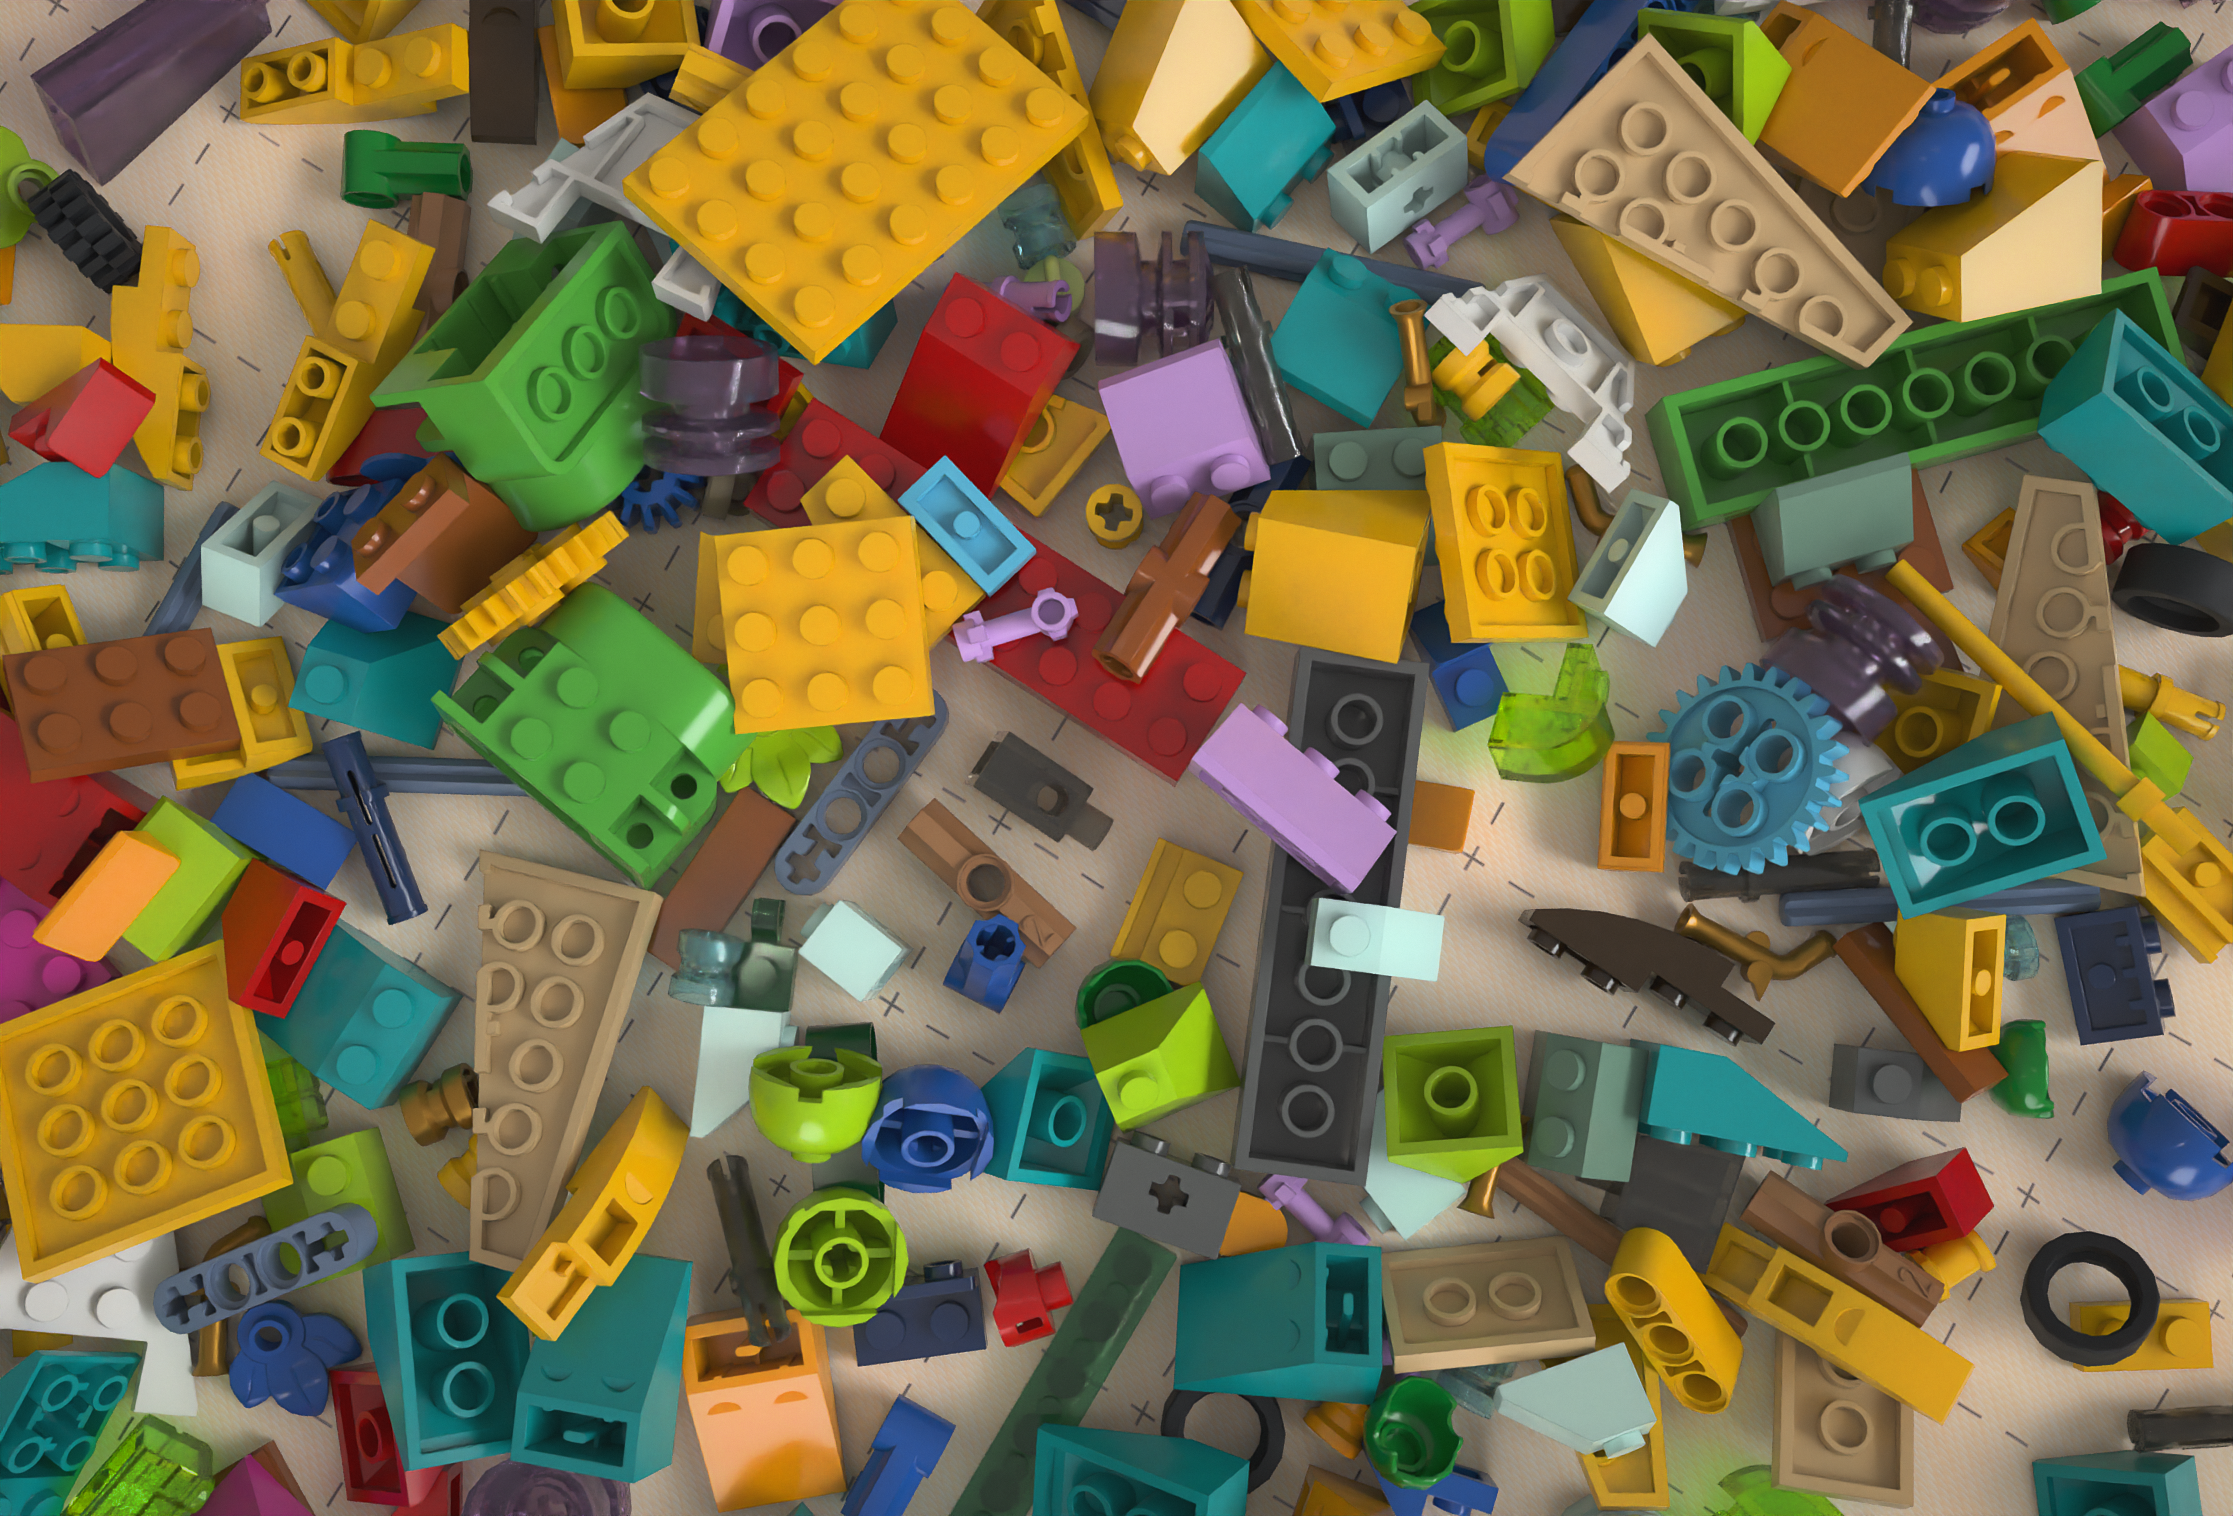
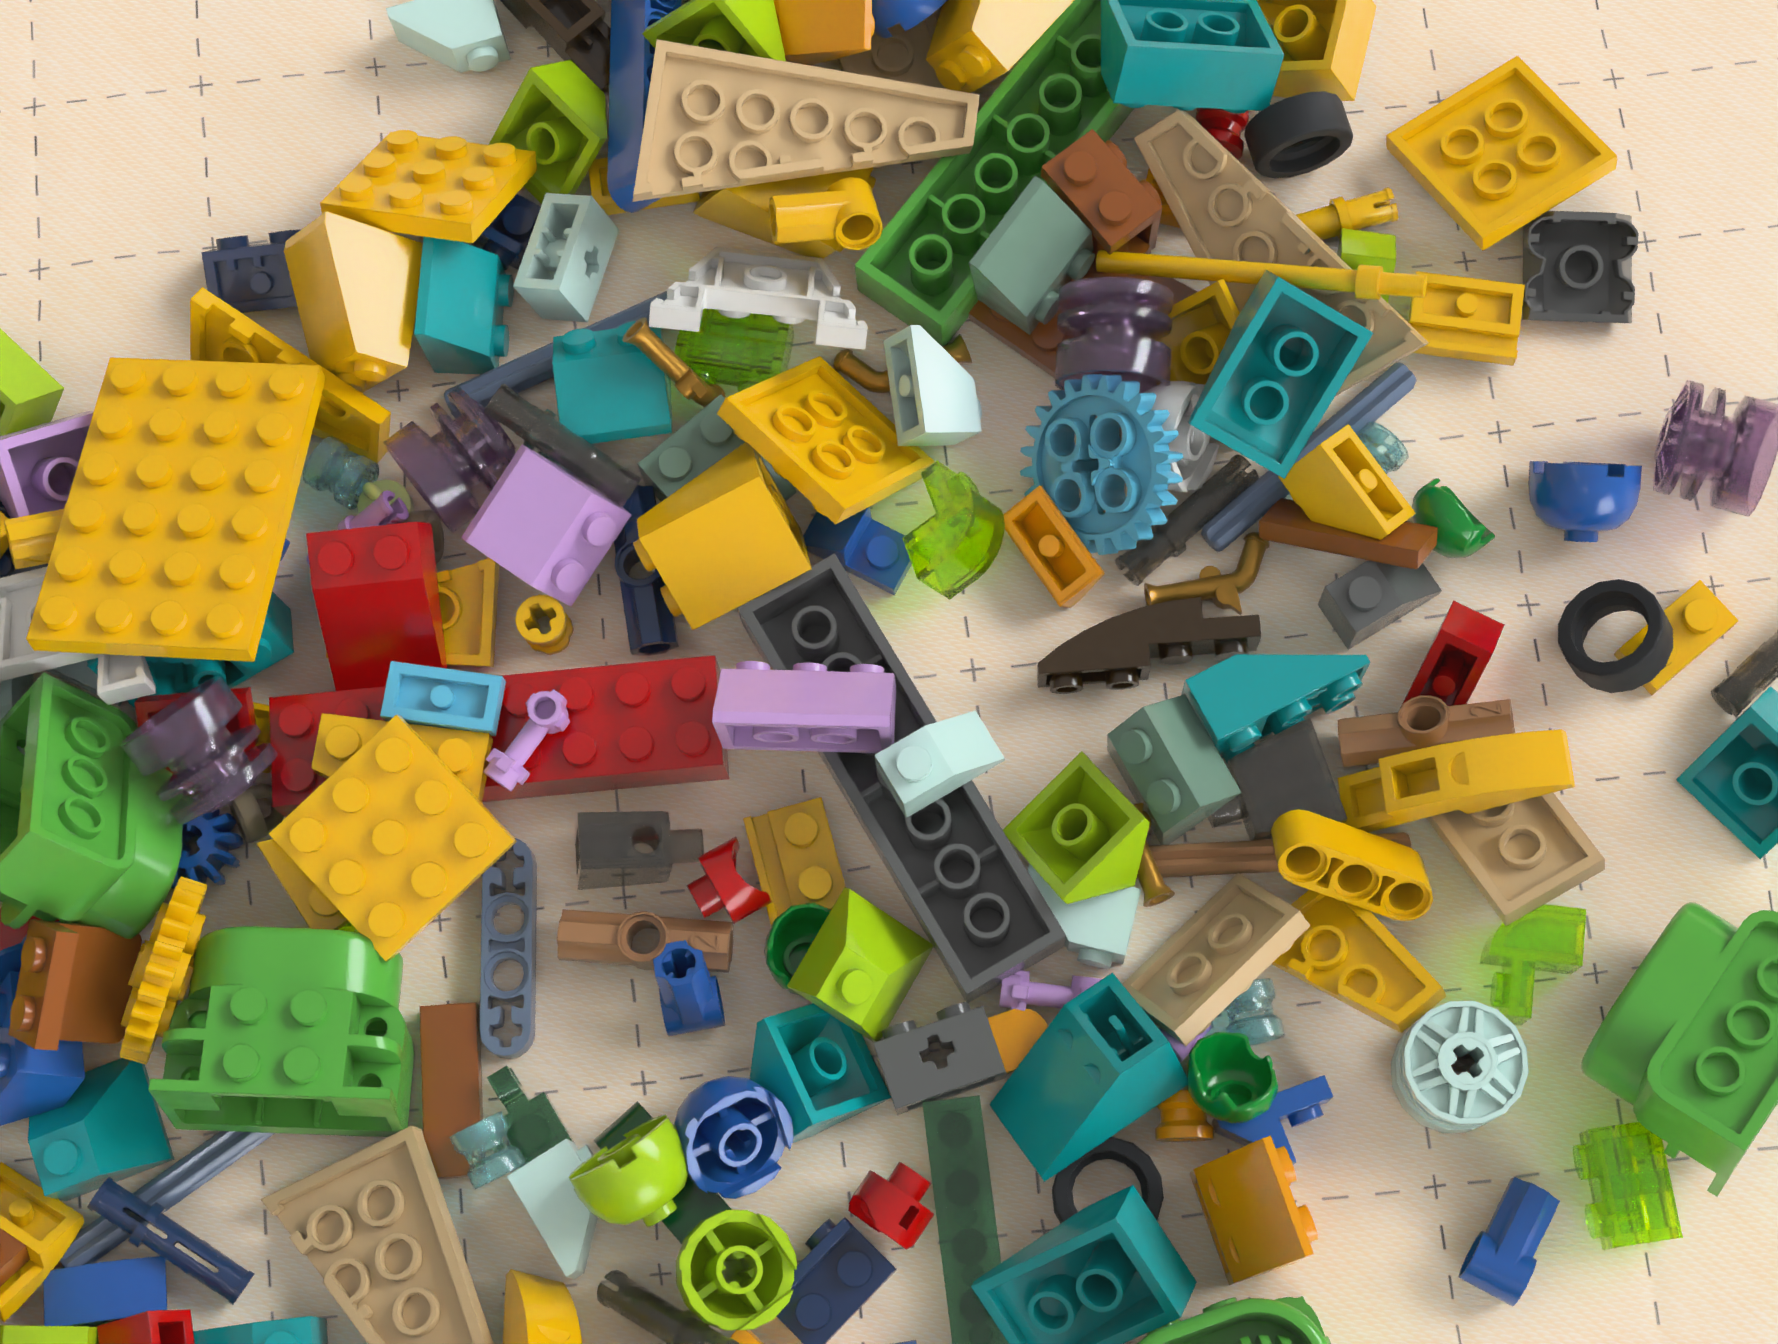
camera: 30 degrees left, 10 degrees down
(782, 761) = (434, 967): lime plate -> none
(853, 948) = (584, 1052): light aqua brick -> none
(1092, 890) = (724, 887): none -> red piece
(1166, 587) = (613, 636): dark orange piece -> none
(1440, 816) = (927, 657): light orange slope -> none
(1475, 379) = (719, 345): yellow wheel -> none
(1489, 205) = (645, 232): lavender bar -> none
(1583, 1403) = (1327, 966): light aqua slope -> none
(1690, 337) = (840, 213): none -> yellow piece
(1953, 1260) = (1509, 680): yellow bush -> none
(1956, 510) = (1103, 192): none -> dark orange bracket
(2113, 974) = (1460, 414): dark blue bracket -> none

